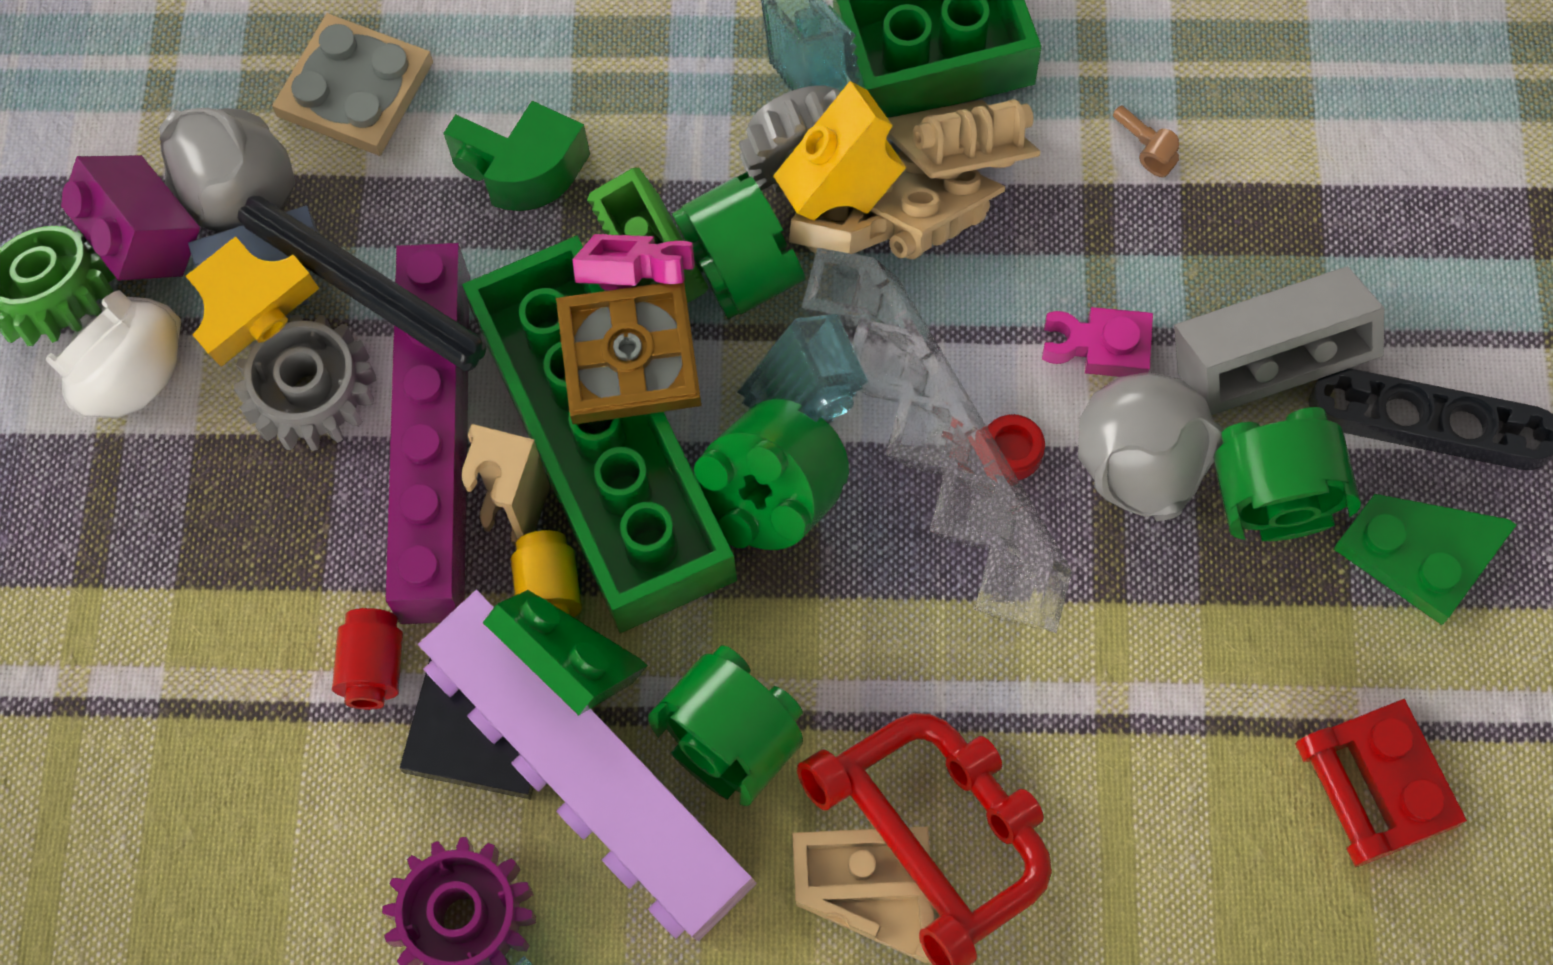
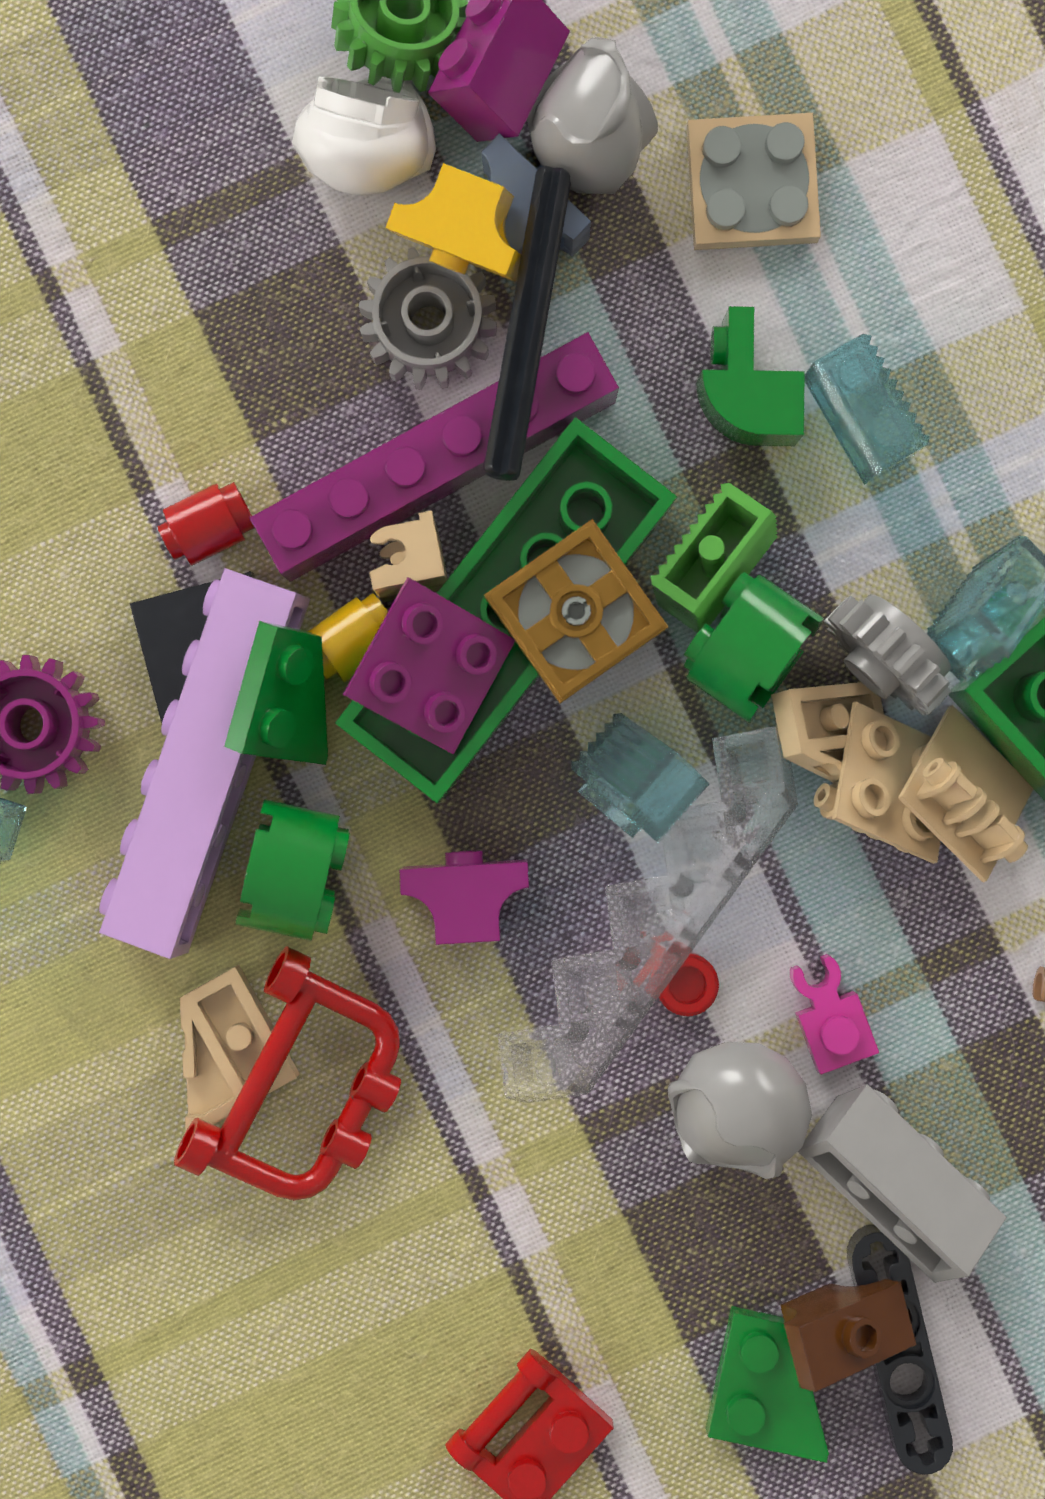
camera: 60 degrees right, 20 degrees up
(592, 74) = (865, 408): none -> clear light blue brick
(605, 495) = (429, 666): none -> magenta hinge
(626, 259) = (668, 561): dark pink plate -> none
(772, 475) = (533, 796): green brick -> none
(832, 592) = (465, 894): none -> magenta brick
(842, 158) = (869, 707): yellow brick -> none
(1285, 476) = (760, 1251): green brick -> none
(1394, 443) = (845, 1330): none -> reddish brown brick

